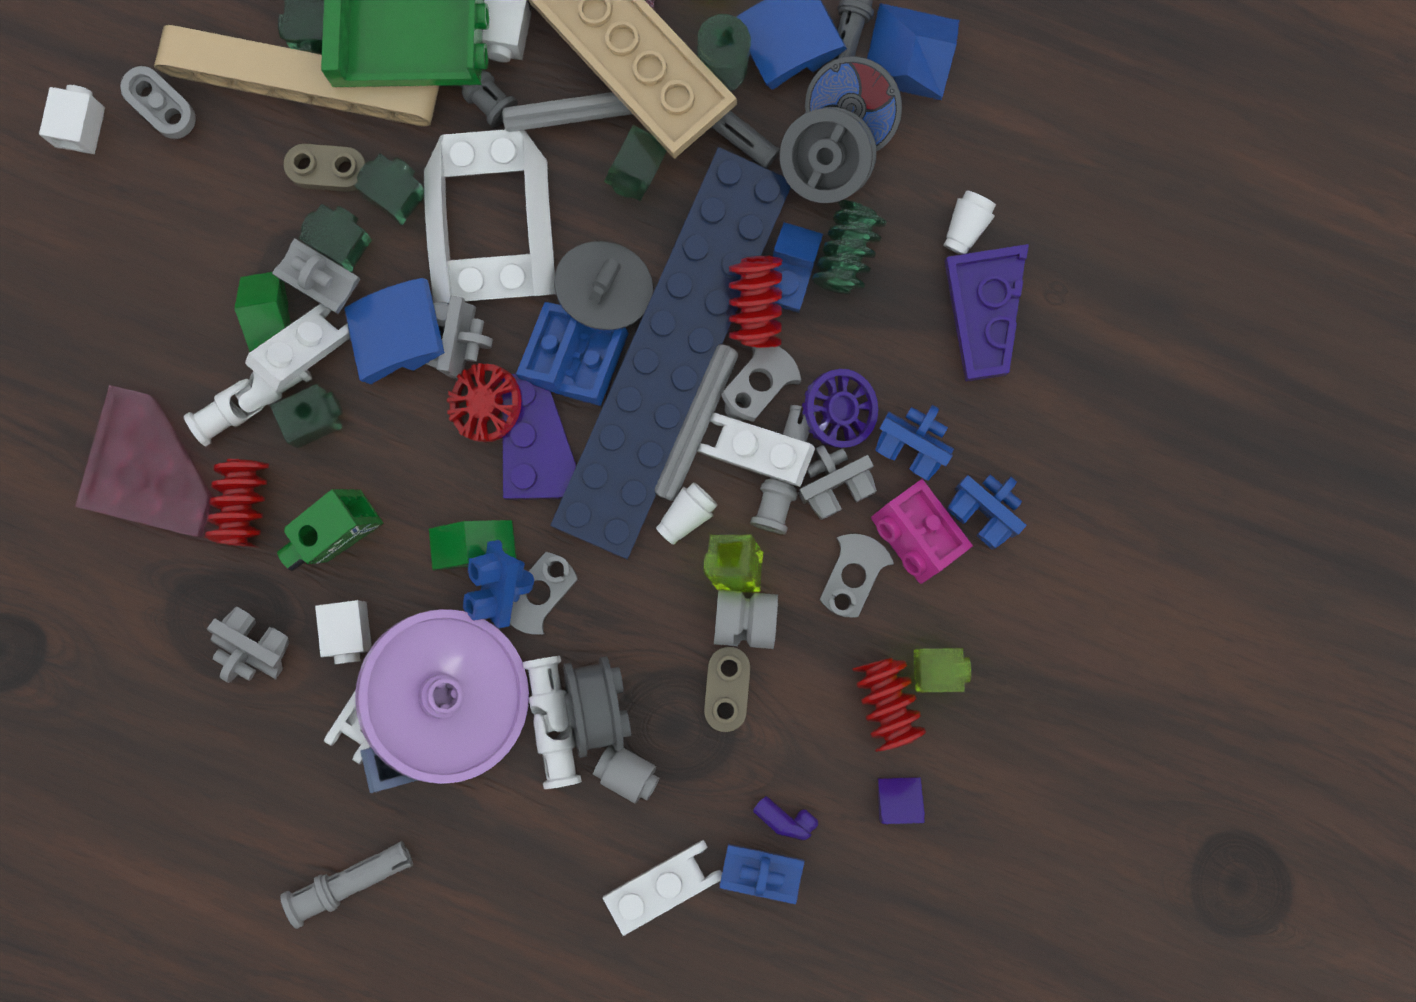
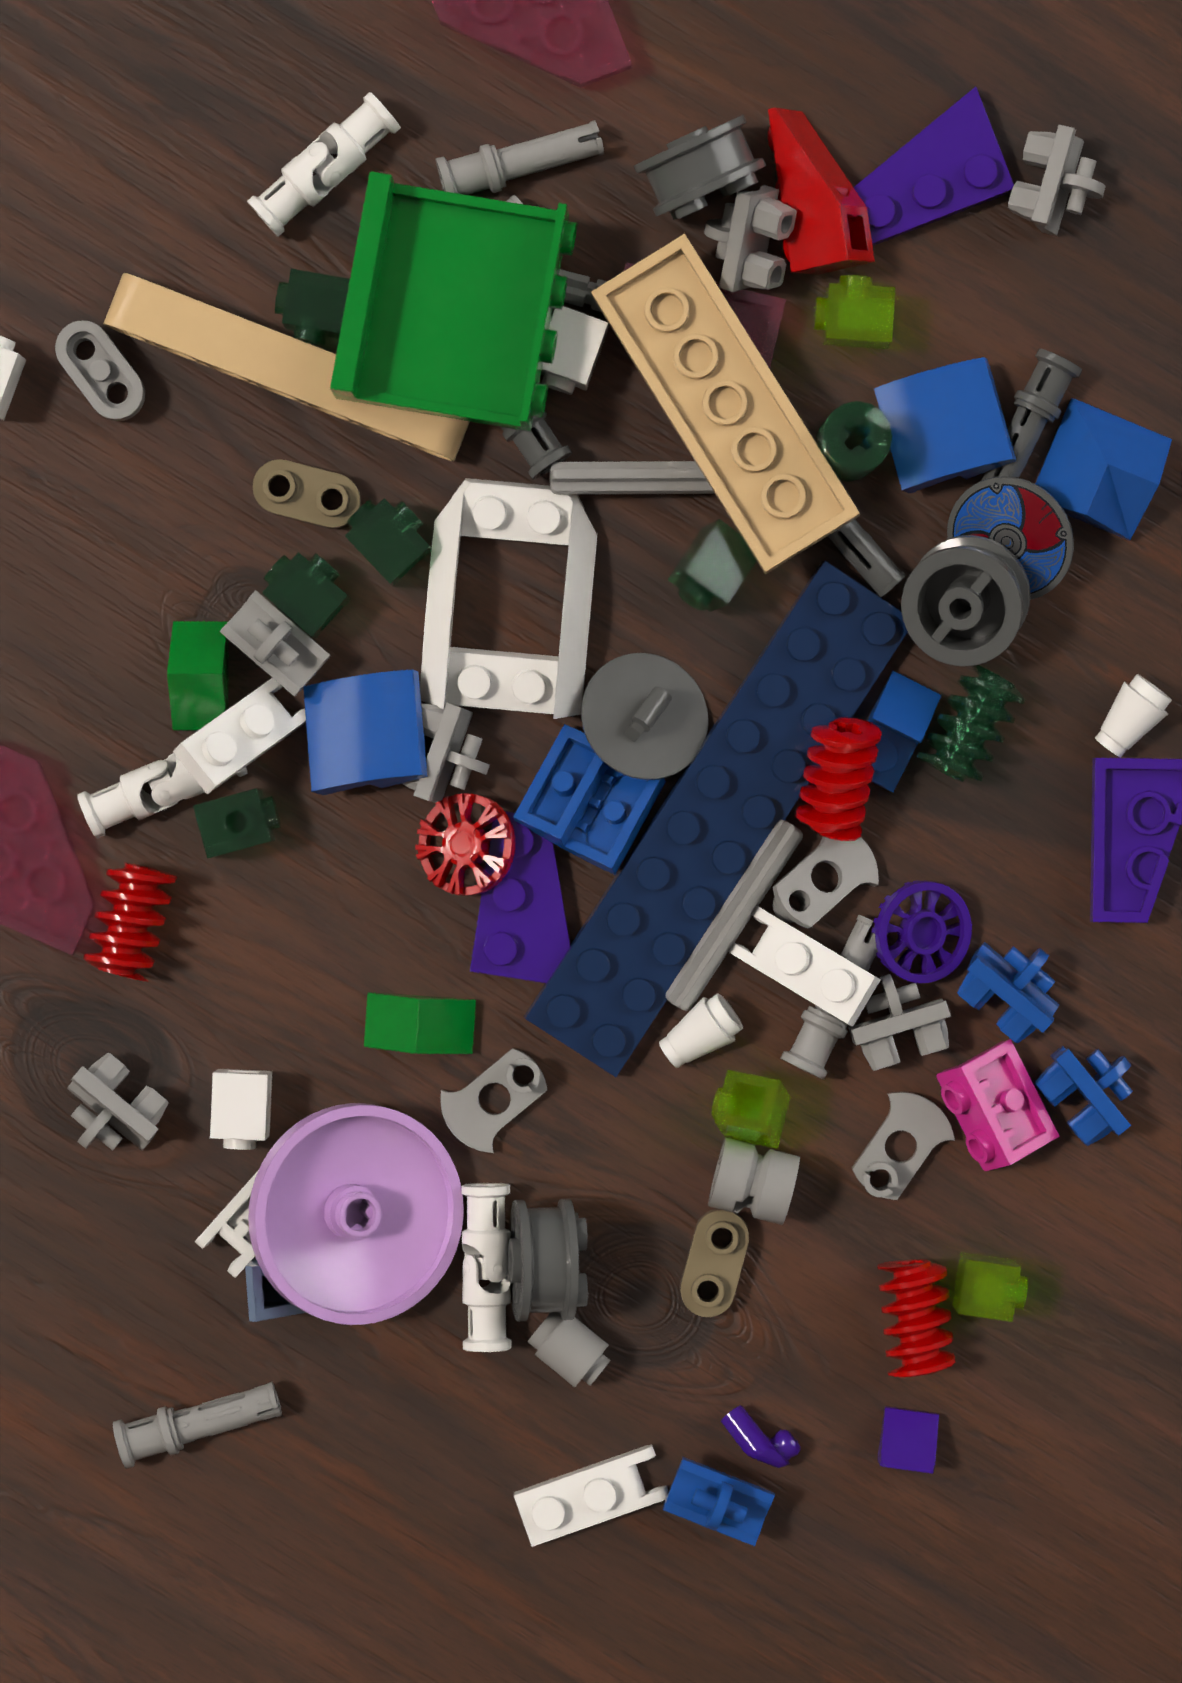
camera: 10 degrees right, 5 degrees up
(328, 528) = (254, 970): green torso -> none
(501, 584) = (448, 1083): blue hips -> none

